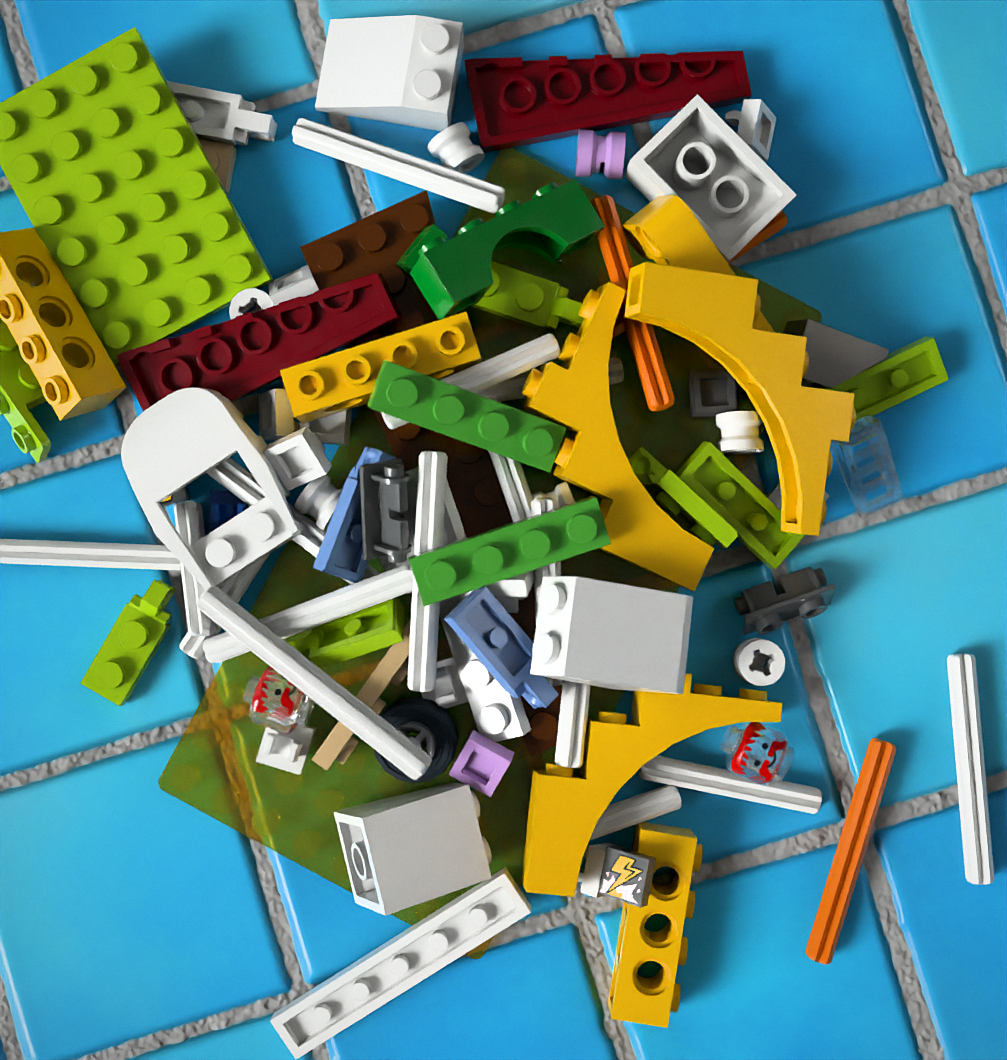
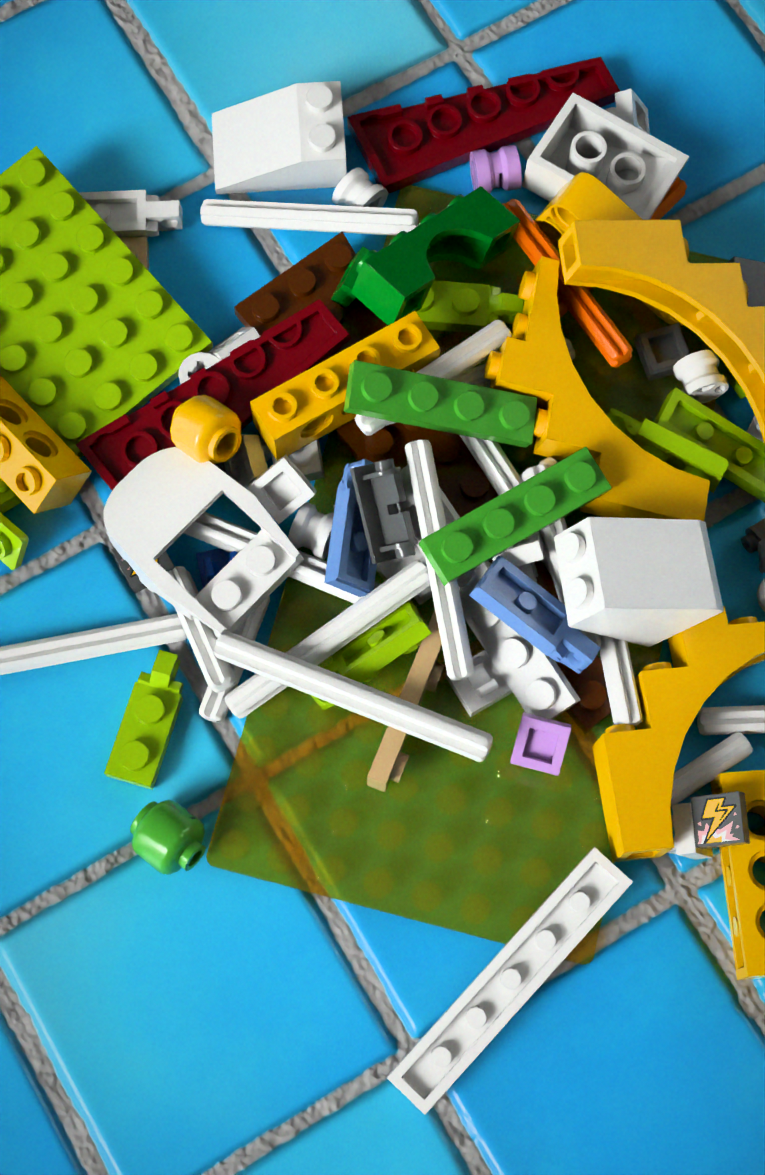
camera: 15 degrees left, 15 degrees down
(125, 758) = (168, 837): none -> bright green head
(236, 382) = (206, 430): none -> yellow head
(277, 702) = (318, 730): clear head -> none
(286, 750) = (333, 781): white tile -> none
(413, 847) = (490, 845): white slope -> none
(434, 728) = (480, 715): black wheel -> none

